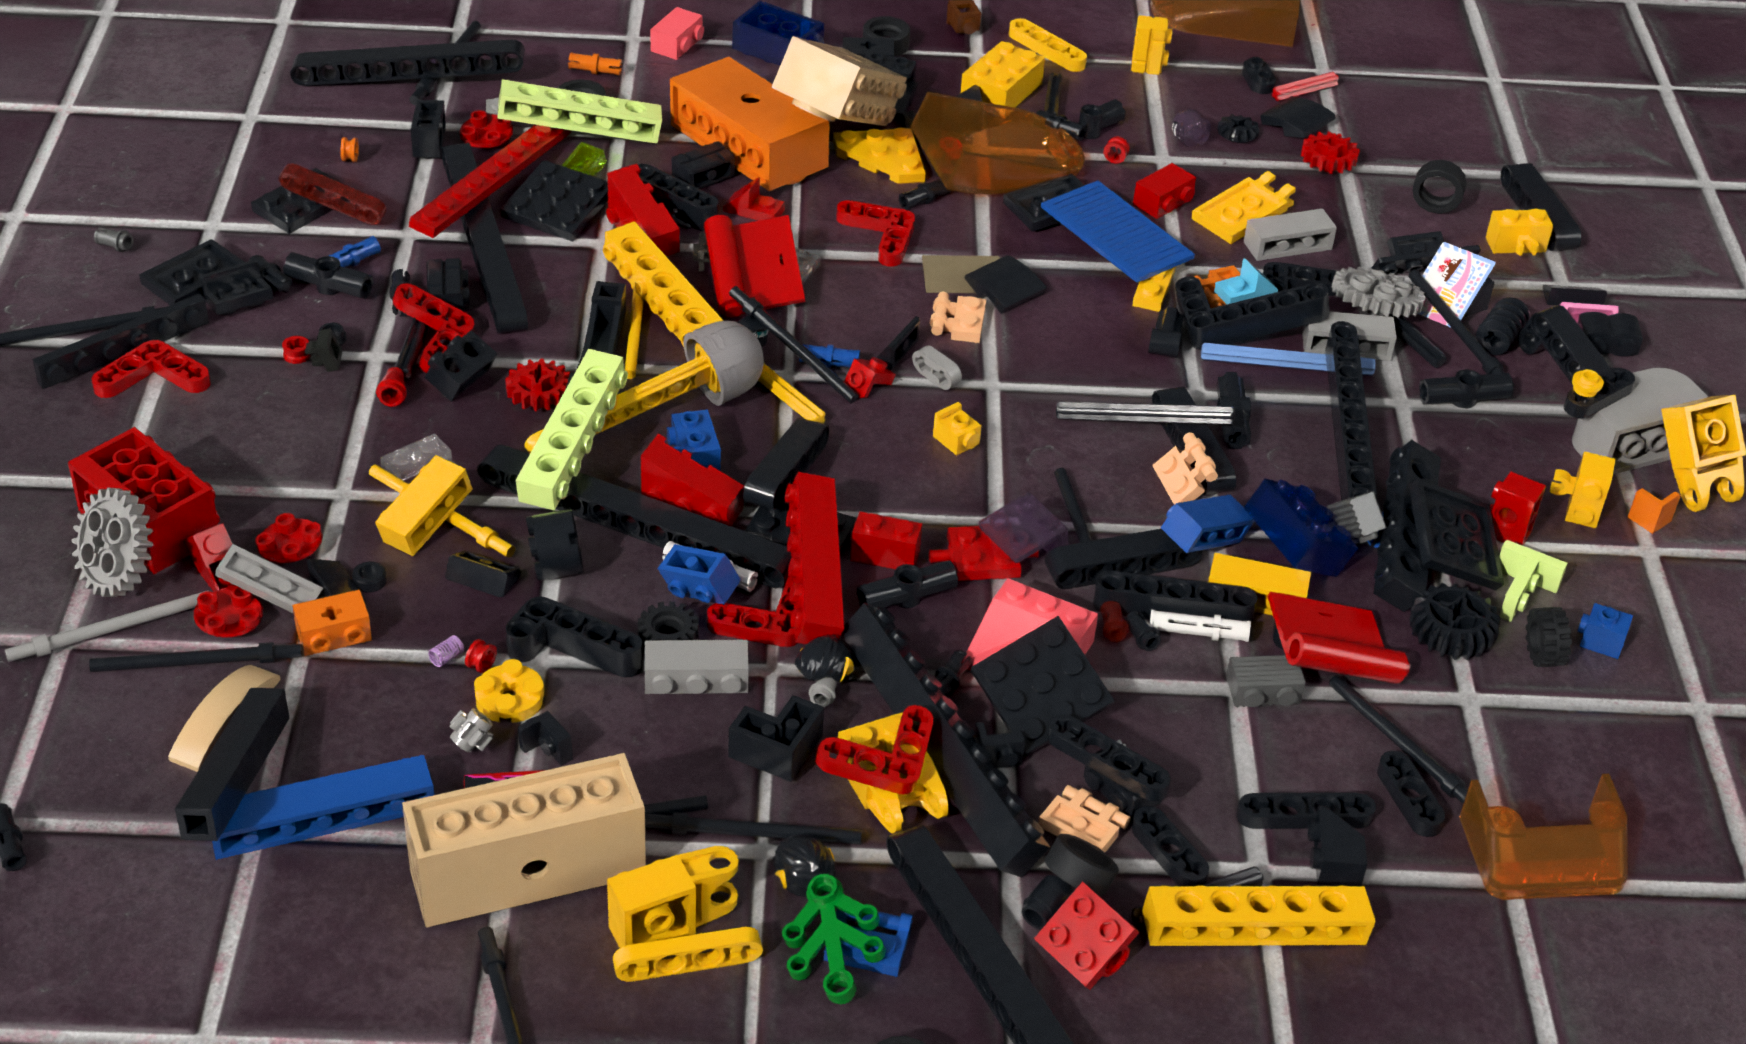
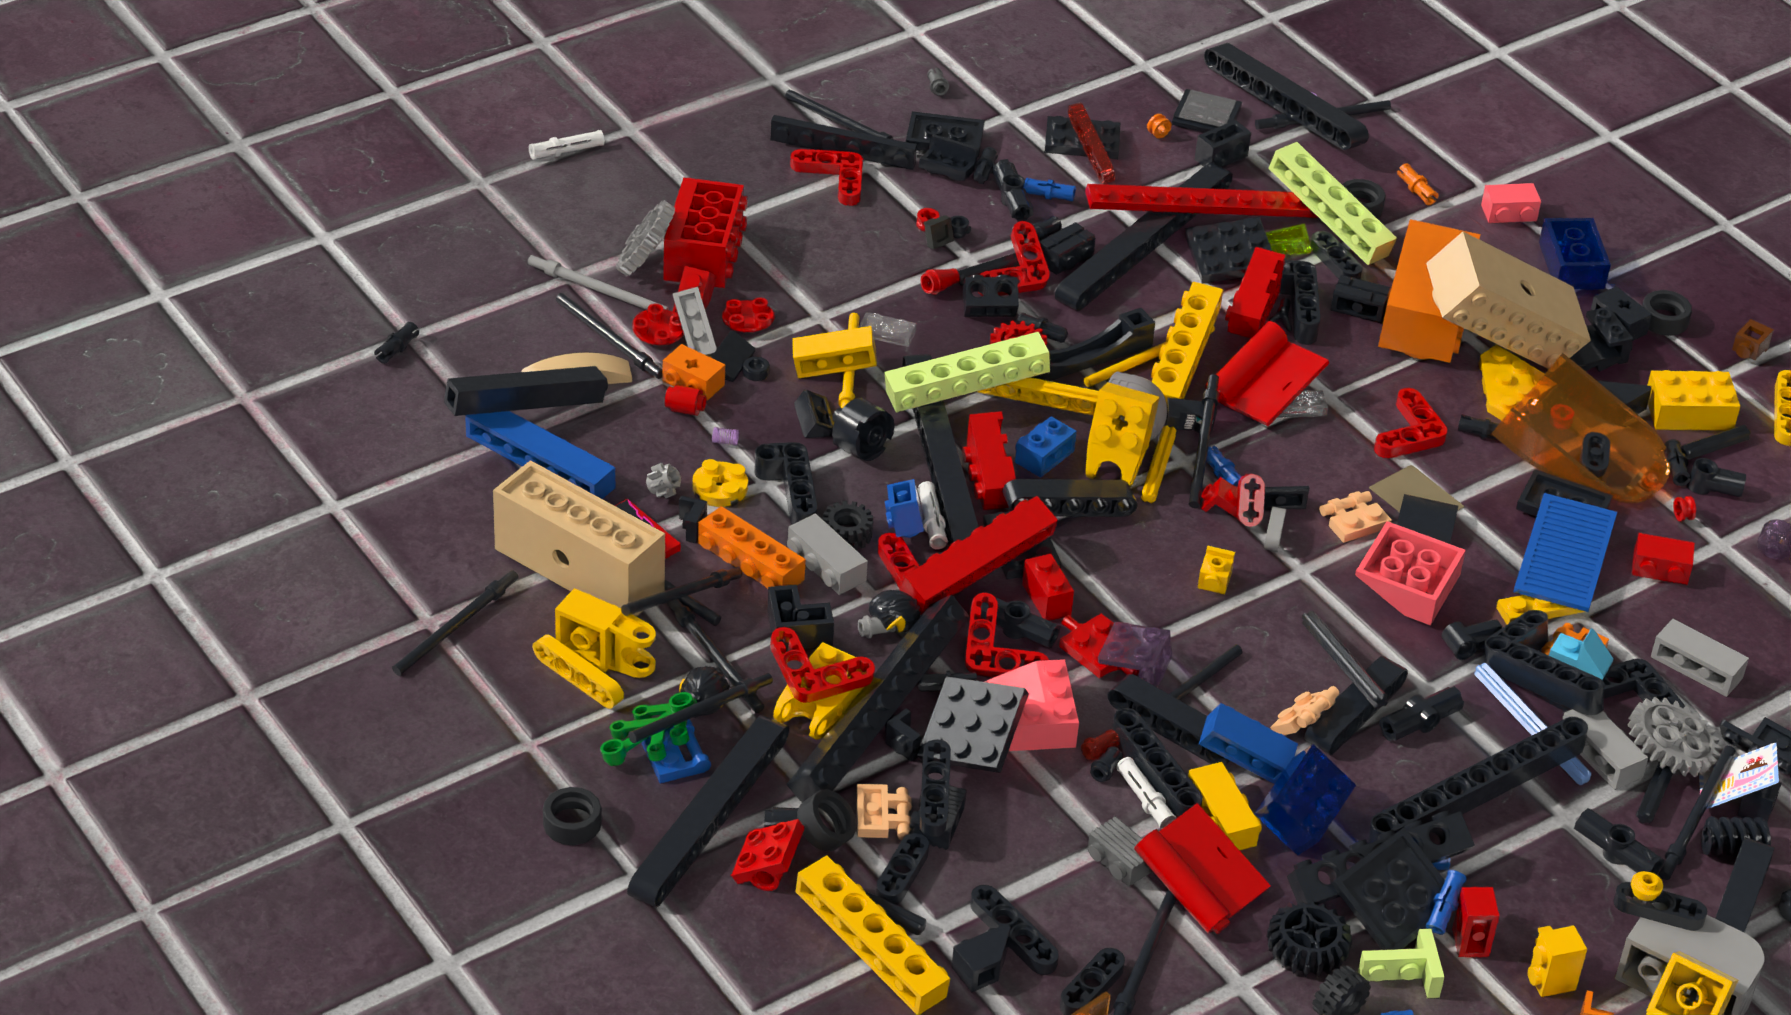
camera: 55 degrees right, 0 degrees up
(362, 117) = (1205, 111): none -> clear piece
(364, 651) = (685, 400): none -> red brick
(480, 655) = (734, 445): red bush -> none
(485, 130) = (1259, 177): red dish -> none
(548, 353) = (1052, 330): none -> black axle
(632, 152) = (1325, 245): none -> black beam
(638, 720) = (750, 549): none -> orange brick
(658, 768) = (717, 580): none -> black bar
(750, 204) = (1354, 348): red slope -> none
(757, 377) = (1120, 441): none -> yellow brick
(840, 831) = (743, 689): none -> black bar
(898, 358) = (1257, 500): none -> beam
(930, 625) = (985, 647): none -> red beam
(1016, 150) = (1595, 453): none -> black plate
(1070, 318) = (1411, 571): none -> coral slope
(1249, 199) = (1712, 615): yellow tile -> none
(1359, 516) = (1347, 824): dark grey brick -> none
(1493, 510) = (1446, 902): none -> blue pin

